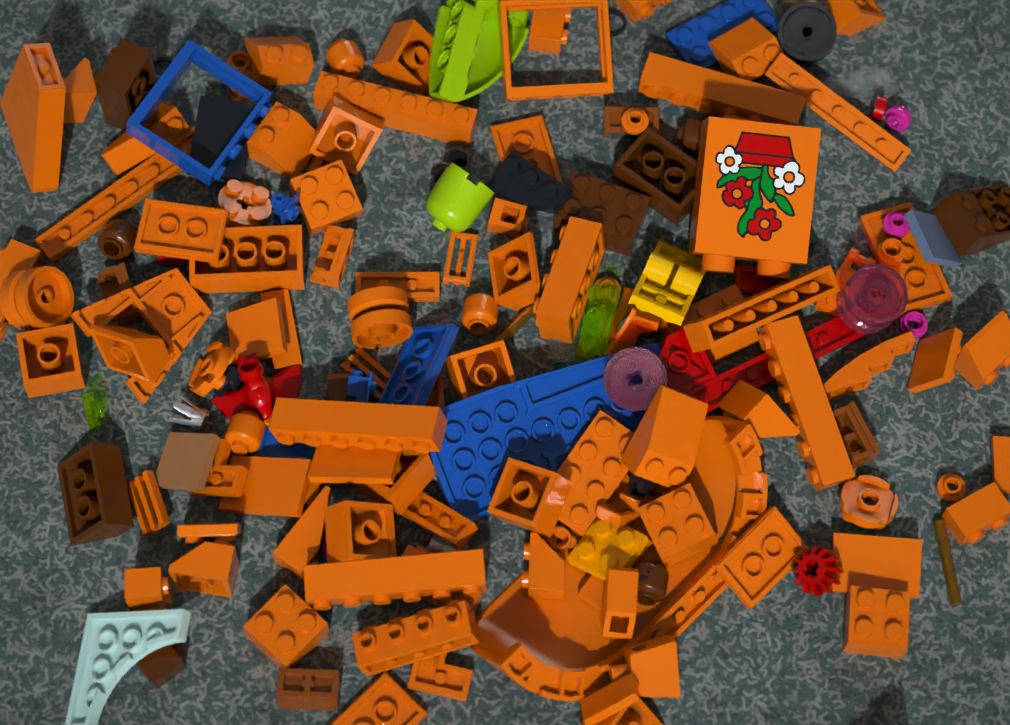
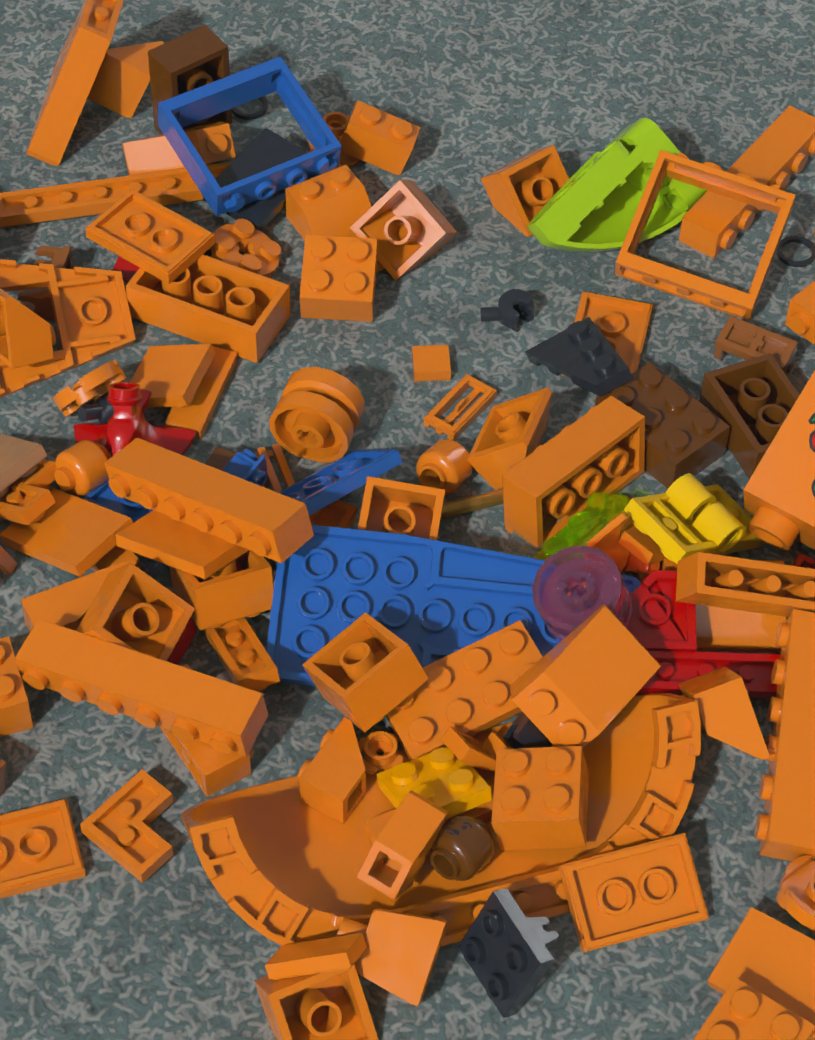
camera: 30 degrees right, 15 degrees down
(117, 239) = (72, 227): reddish brown head -> none
(198, 415) = (42, 432): flat silver piece -> none
(286, 210) = (285, 265): blue hinge -> none
(333, 256) = (314, 344): orange hinge -> none
(345, 58) = (455, 164): orange head -> none
(400, 108) = (492, 235): orange brick -> none
(415, 637) = (123, 769): orange brick -> none
(417, 285) = (386, 409): orange plate -> none
(421, 232) = (431, 363): none -> orange tile
(456, 200) = (490, 338): lime cylinder -> none
(504, 210) = (539, 374): orange brick -> none
(634, 128) = (749, 341): orange plate -> none
(713, 636) = (508, 951): none -> black plate
(816, 579) = (701, 943): red gear -> none

